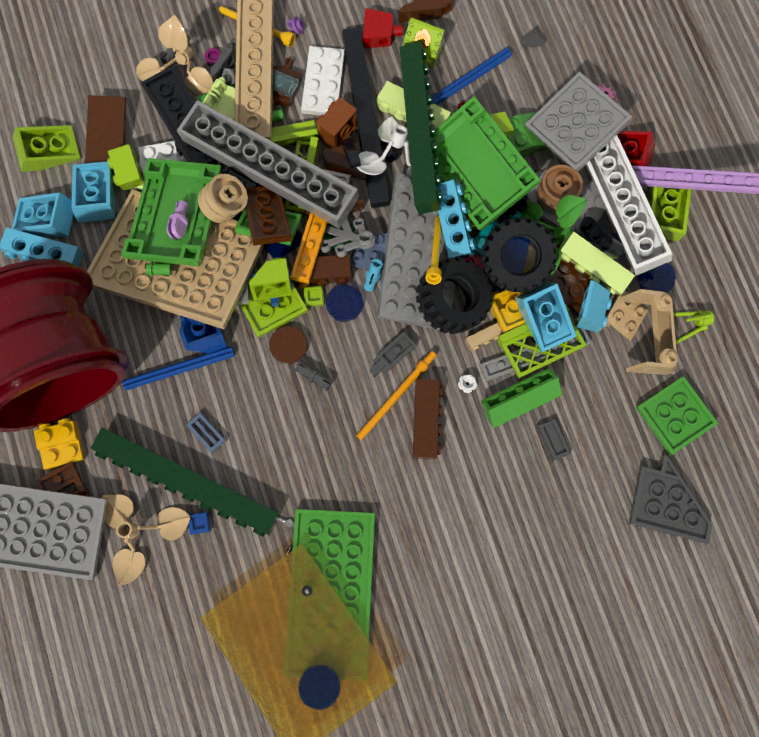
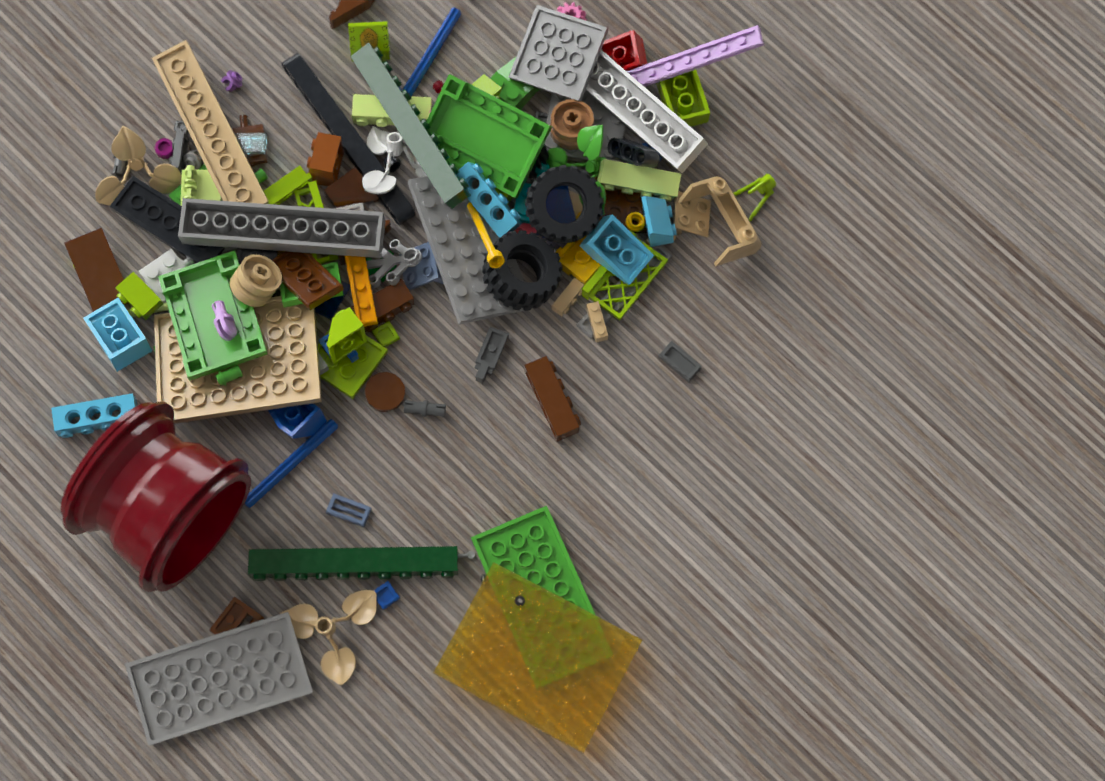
camera: 25 degrees left, 5 degrees down
(44, 147) = (43, 314): lime slope -> none
(44, 215) = (79, 379): medium azure slope -> none
(59, 443) = (212, 587): yellow plate -> none
(288, 38) = (229, 96): yellow piece -> none
(319, 687) = (574, 677): clear blue tile -> none
(322, 79) = (286, 122): white plate -> none
(344, 303) = (419, 327): clear blue tile -> none
(351, 152) = (356, 180): black beam -> none
(370, 282) = (434, 280): medium azure pin -> none
(379, 29) = (318, 45): red torso -> none
(420, 368) = (523, 354): light orange bar -> none
(467, 388) = (574, 342): white plate -> none
(498, 370) = (597, 321): none -> tan piece
(521, 397) = (631, 336): bright green brick -> none
(577, 295) = (638, 217): none -> yellow plate
(658, 279) = (705, 166): clear blue tile -> none
(667, 505) = (812, 371): dark grey wing -> none
(676, 415) = (782, 285): bright green plate -> none

